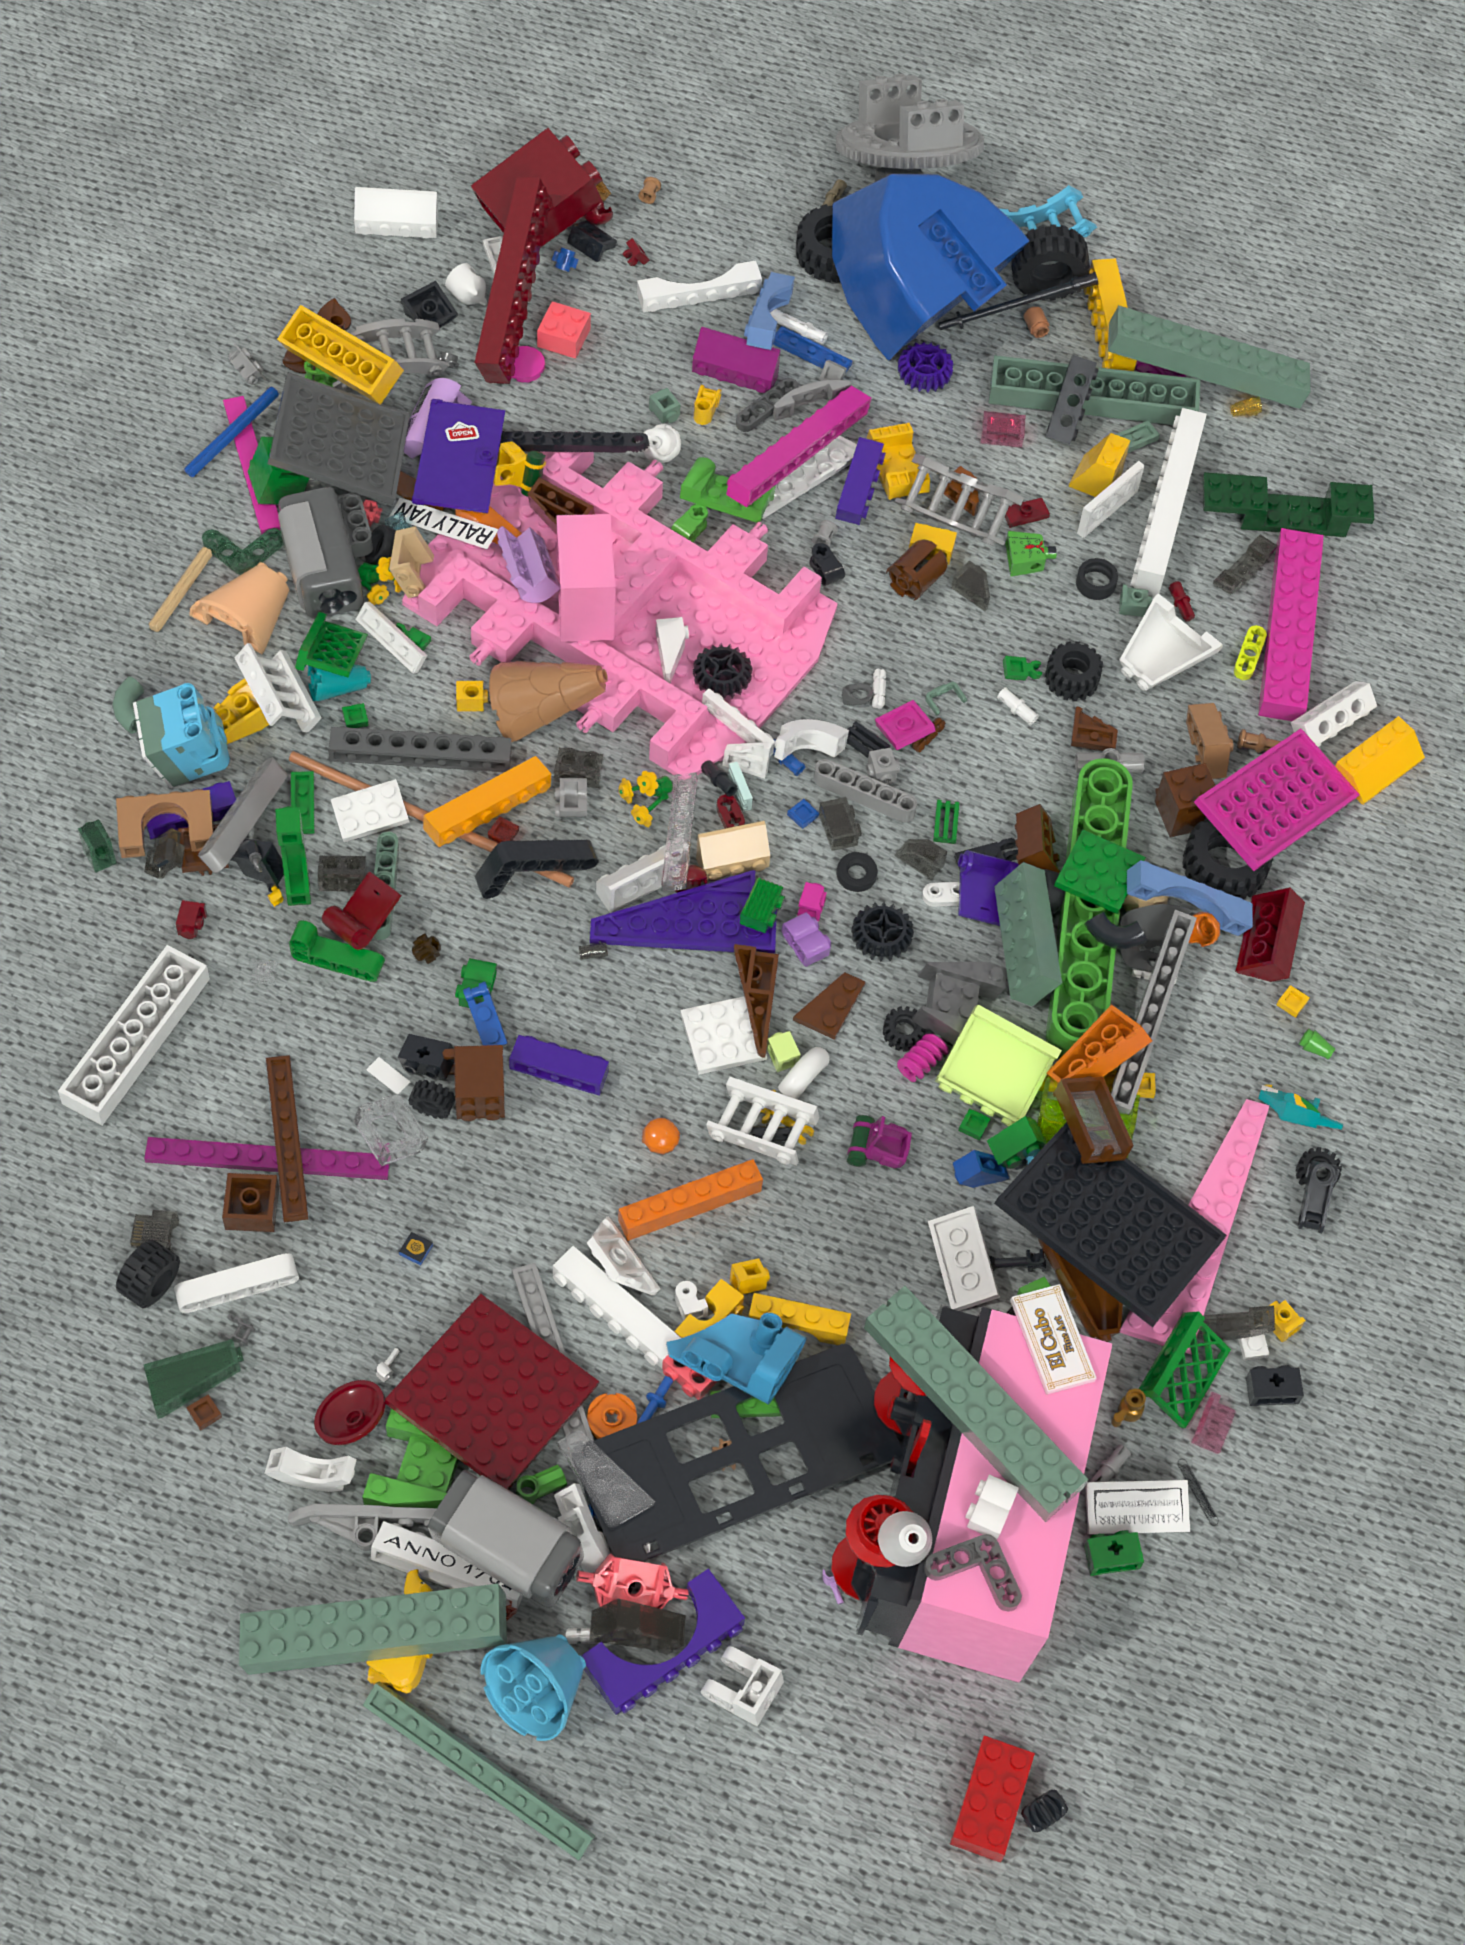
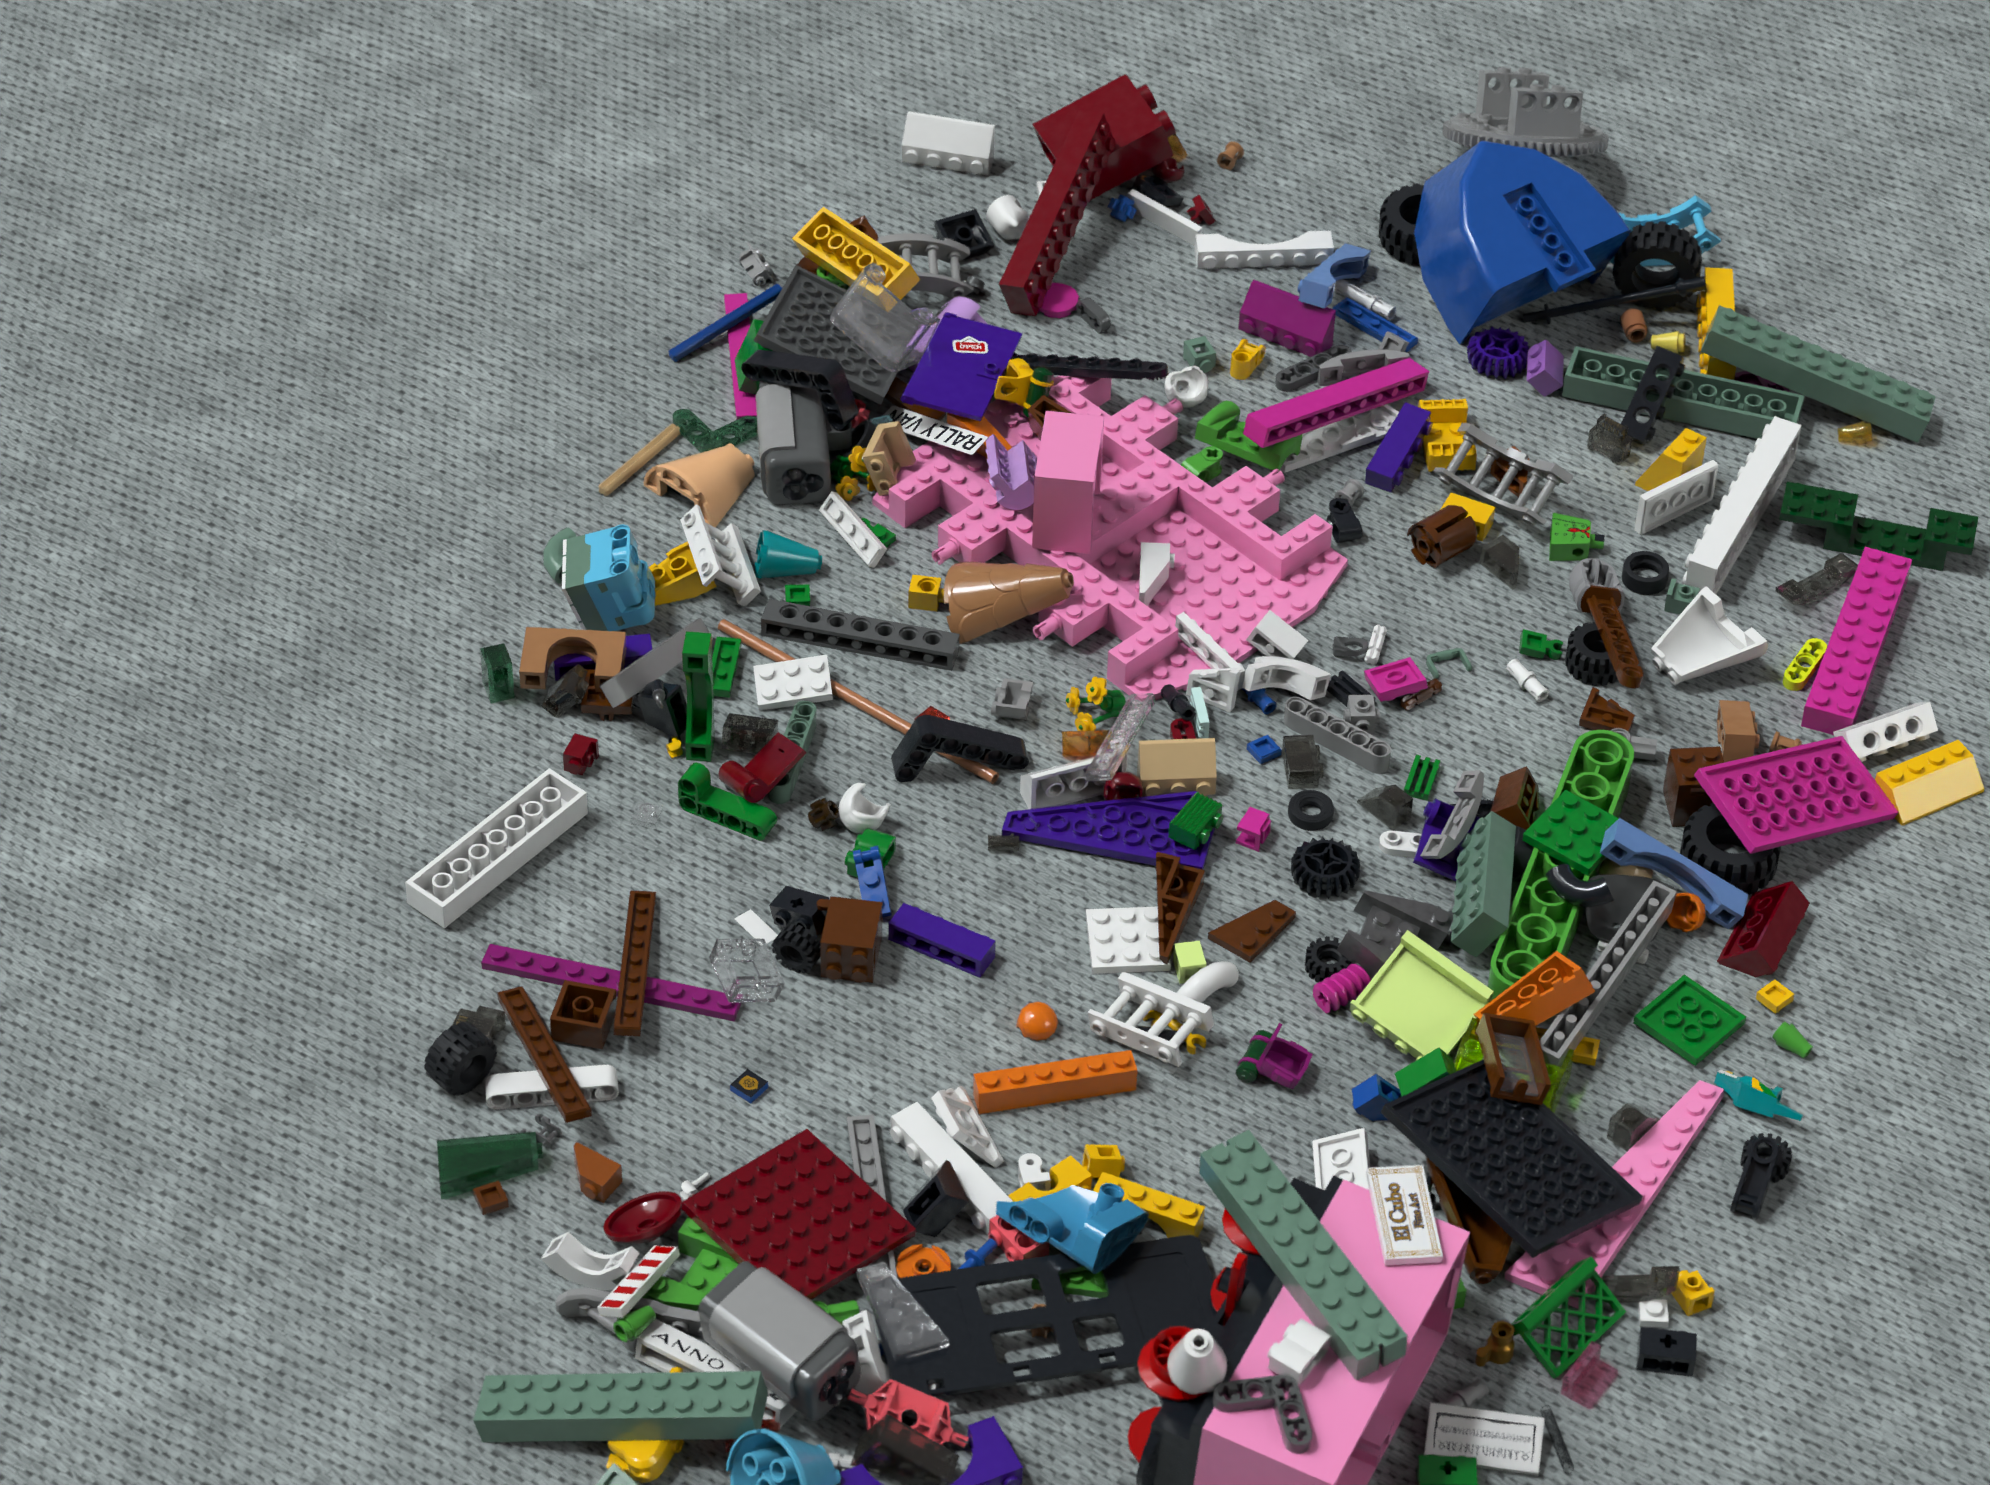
camera: 15 degrees right, 15 degrees down
(224, 1253) = (544, 1054): none -> reddish brown tile
(296, 1370) = (596, 1173): none -> dark orange slope
(315, 642) = (783, 524): green fence -> none
(322, 492) = (807, 372): none -> black beam
(361, 1490) = (638, 1281): none -> tile
(366, 1534) = (634, 1323): none -> bright green cone
(379, 423) = (882, 322): none -> clear windscreen
(460, 942) = (858, 812): none -> white piece
(487, 801) = (920, 688): light orange brick -> none
(561, 376) = (1093, 314): none -> dark grey beam
(563, 329) = (1105, 272): coral brick -> none
(580, 762) = (1029, 668): clear smoke brick -> none
(605, 264) = (1165, 217): none -> white tile
(610, 1348) = (936, 1202): none -> black slope
(646, 834) = (1082, 742): none -> clear orange slope
(719, 664) = (1204, 600): black gear -> none
(793, 699) = (1276, 637): none -> white brick
(806, 939) = (1239, 862): medium lavender brick -> none
(831, 1582) = (1127, 1457): lavender hand -> none
(970, 379) = (1545, 368): none -> medium lavender brick
(974, 1124) = (1386, 1061): green tile -> none
(994, 869) = (1469, 791): none -> light grey slope
(1003, 429) = (1571, 419): clear pink brick -> none
(1026, 513) = (1580, 502): dark red plate -> none
(1040, 446) = (1610, 439): none -> clear smoke piece
(1065, 611) = (1600, 593): none -> reddish brown piece
(1070, 335) = (1670, 341): none -> light yellow cone
(1140, 435) = (1725, 446): sand green plate -> none
(1181, 601) = (1737, 605): dark red axle -> none
(1198, 1157) = (1630, 1125): none -> clear smoke slope
(1225, 1038) = (1689, 1020): none -> green plate

